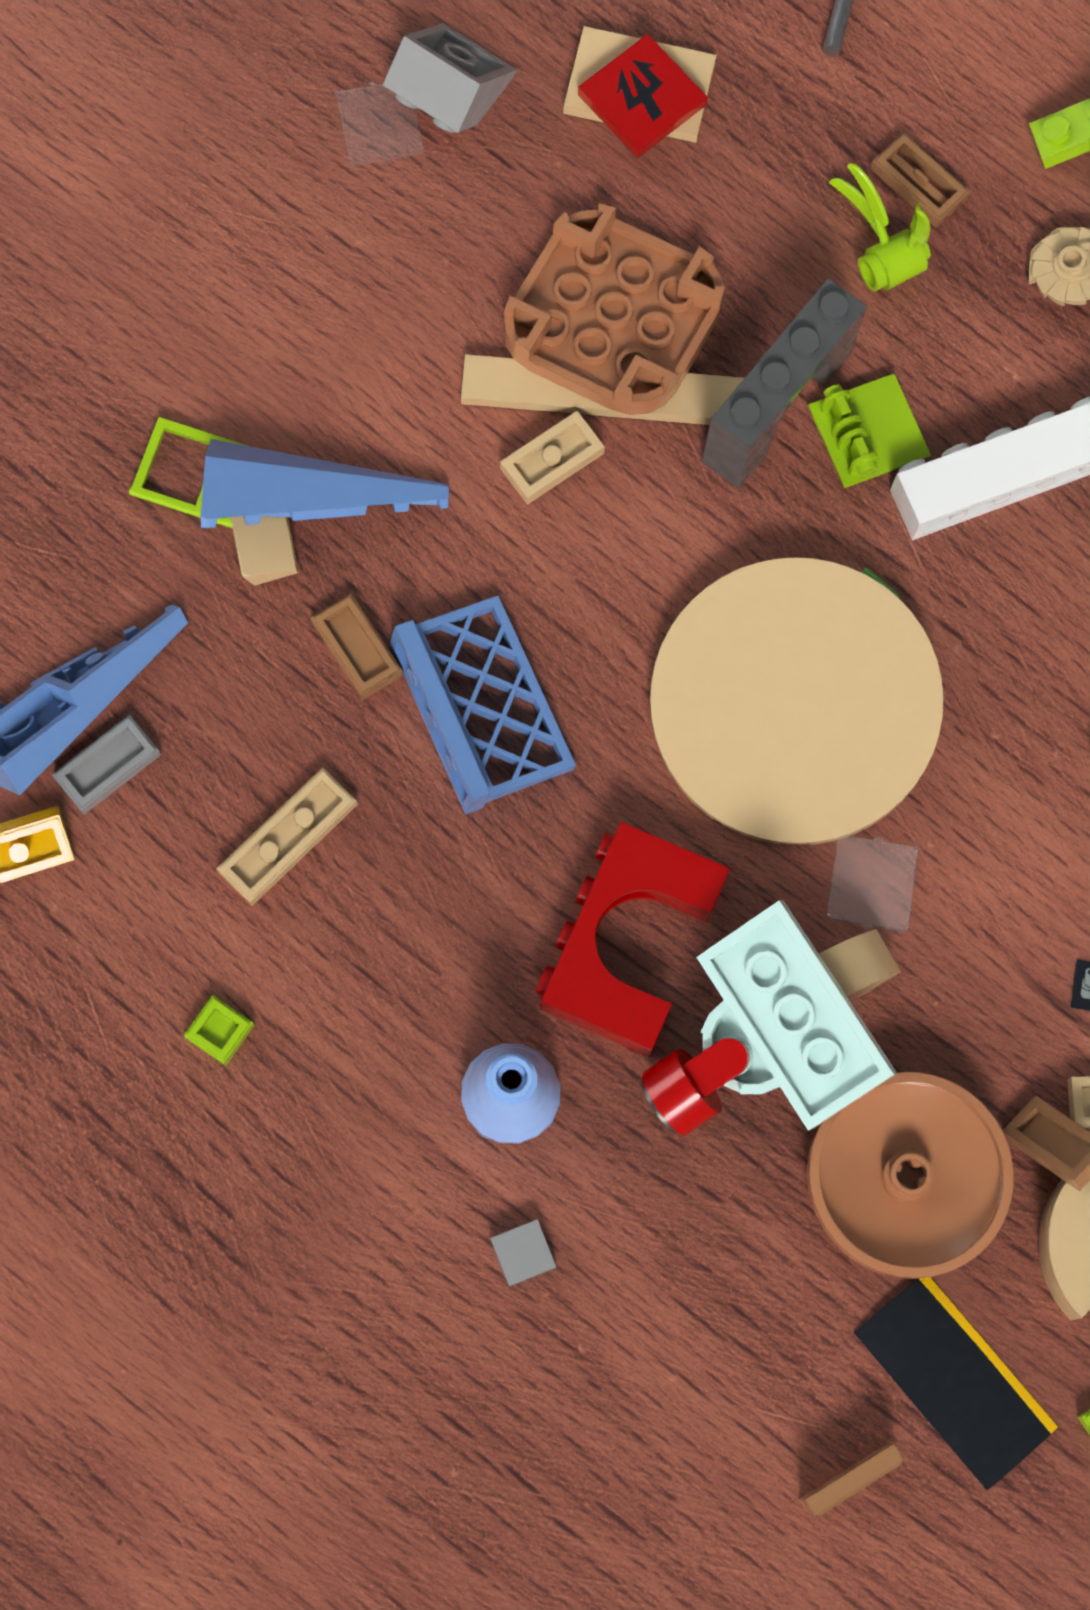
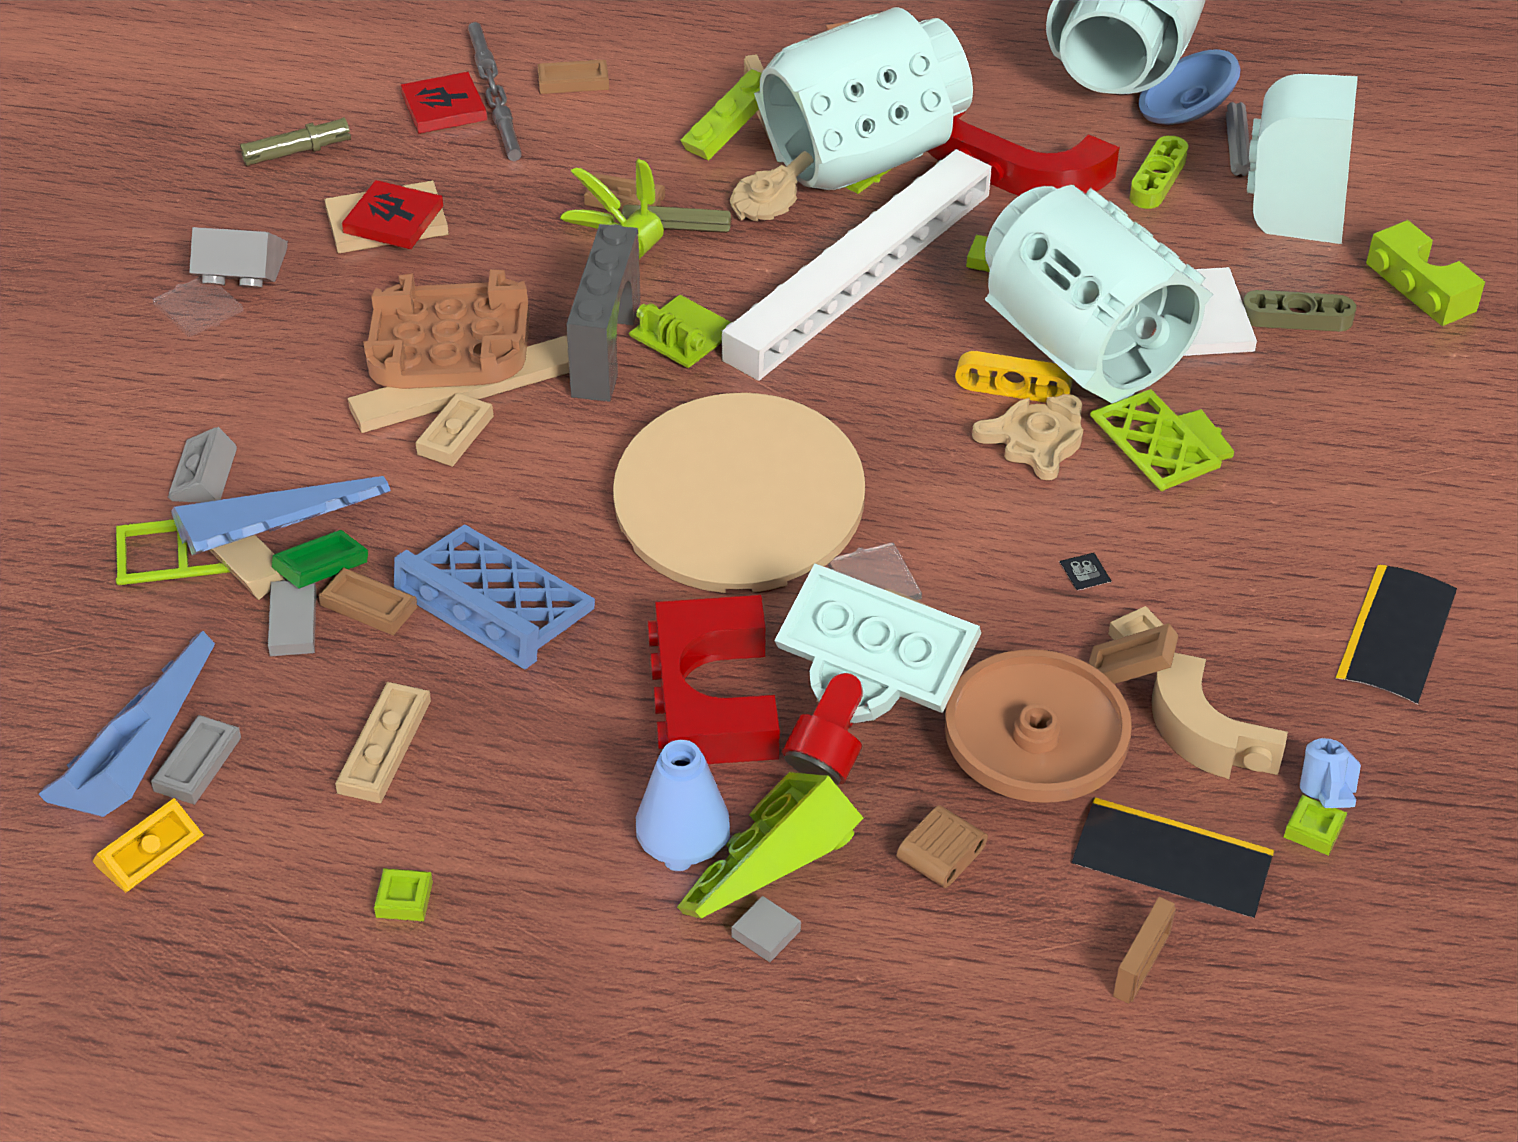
camera: 25 degrees left, 30 degrees down
(274, 630) = (292, 619): none -> light grey tile
(279, 376) = (203, 467): none -> light grey slope
(332, 572) = (319, 558): none -> green tile
(594, 1167) = (792, 827): none -> lime wedge
(738, 1253) = (942, 846): none -> medium nougat piece
(963, 253) = (687, 218): none -> olive axle

